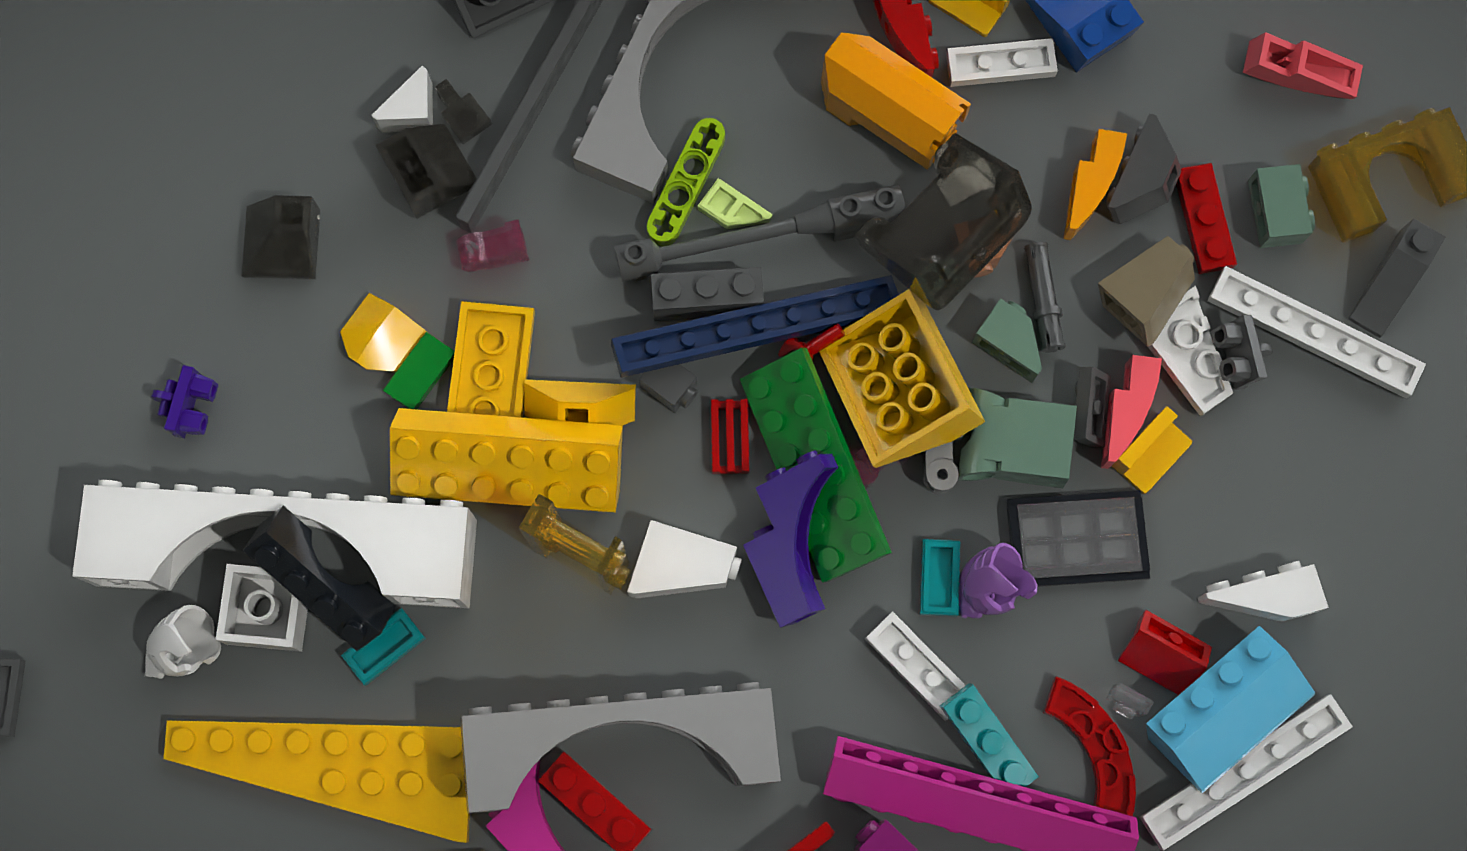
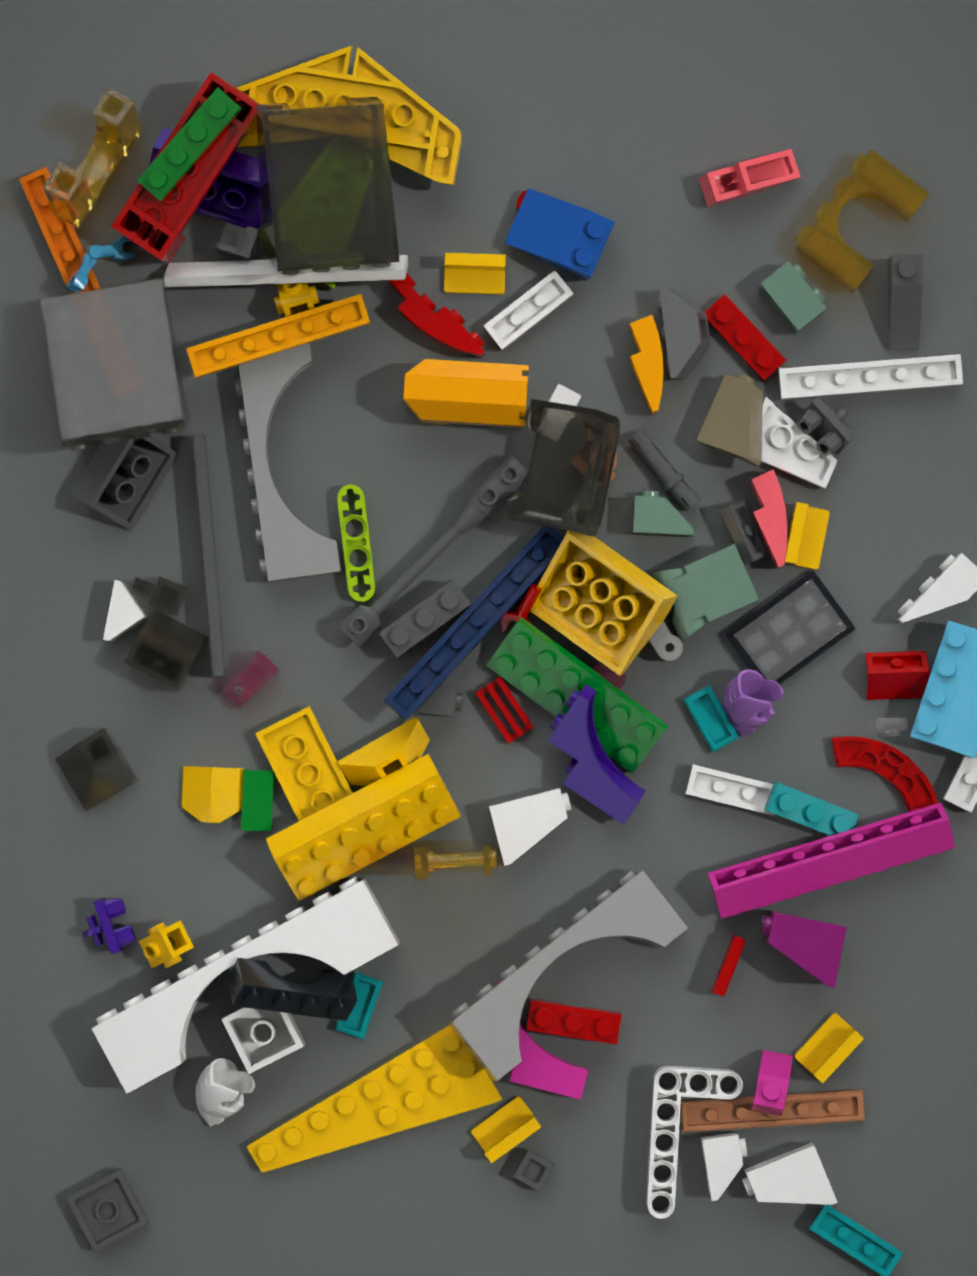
camera: 25 degrees left, 10 degrees up
(226, 455) = (165, 944): none -> yellow brick
(731, 207) = (400, 542): yellowish green tile -> none

